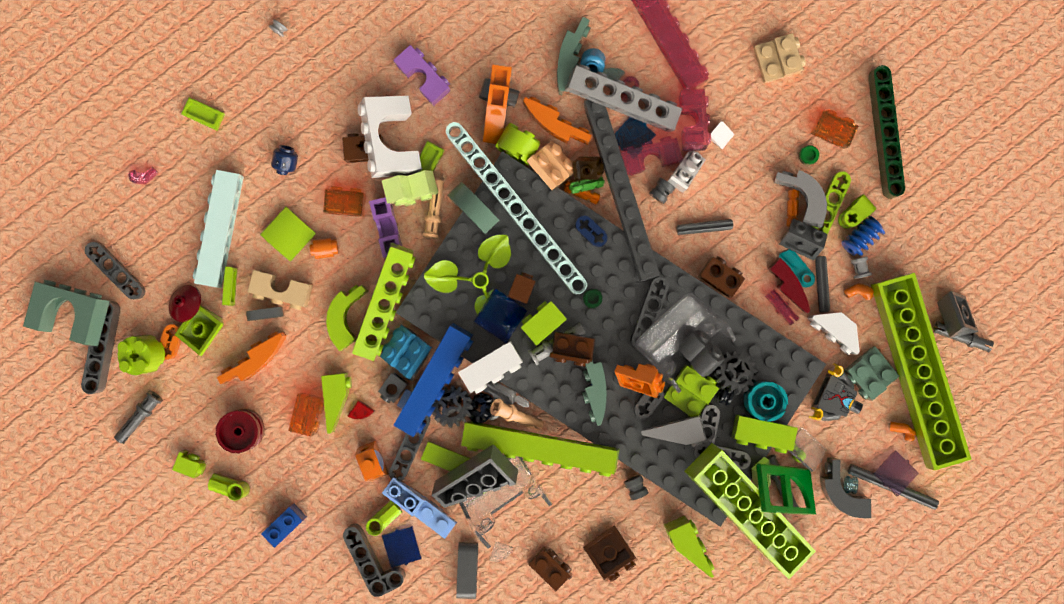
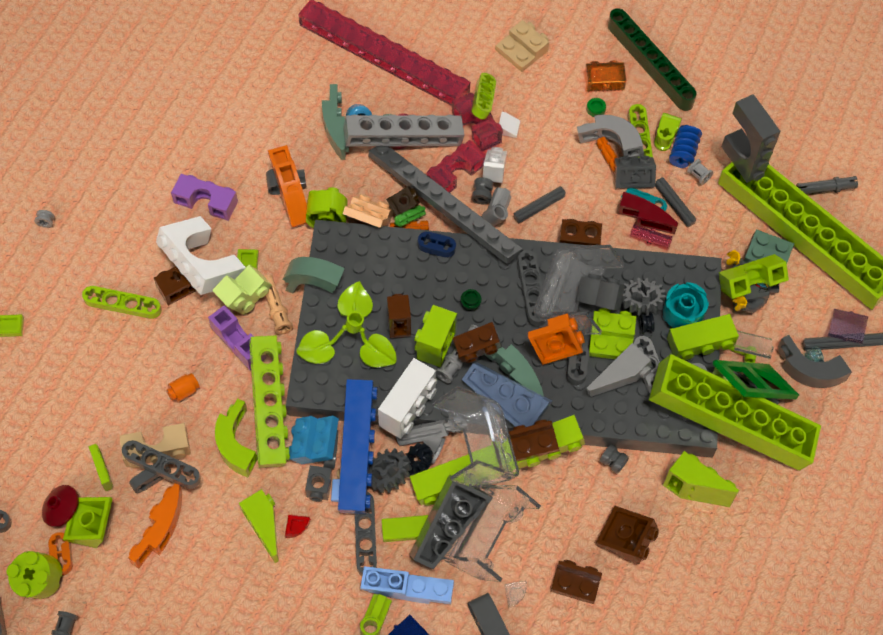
camera: 25 degrees left, 25 degrees down
(218, 228) = (65, 420): light aqua brick -> none
(228, 431) = (173, 588): dark red wheel -> none
(272, 315) = (159, 467): none -> dark grey beam
(284, 160) = (104, 326): dark blue head -> none
(288, 234) = (139, 392): lime slope -> none
(306, 414) = (240, 553): clear orange brick -> none
(309, 142) = (123, 299): none -> lime beam
(344, 202) = (183, 337): clear orange brick -> none
(371, 461) = (333, 564): orange torso -> none
(500, 315) = (390, 352): clear blue tile -> none
(507, 203) = (362, 262): light aqua beam -> none
(510, 413) = (446, 440): light nougat pin -> none
(535, 436) = (485, 437): none -> clear windscreen
(548, 117) = (351, 183): orange slope -> none
(572, 455) = (533, 440): none -> reddish brown bracket
(575, 407) = (518, 403): none -> sand blue wing
(633, 134) = (428, 157): piece -> none
(663, 217) = (497, 207): none -> light grey piece
(715, 101) = (484, 96): none -> lime beam
(838, 329) = (713, 230): white slope -> none
(856, 398) = (767, 270): none -> lime arch
(864, 290) = (711, 190): orange arm -> none
(903, 428) = (831, 285): orange arm -> none
(916, 282) = (751, 151): none -> dark grey arch
(957, 314) = (807, 168): dark grey slope -> none

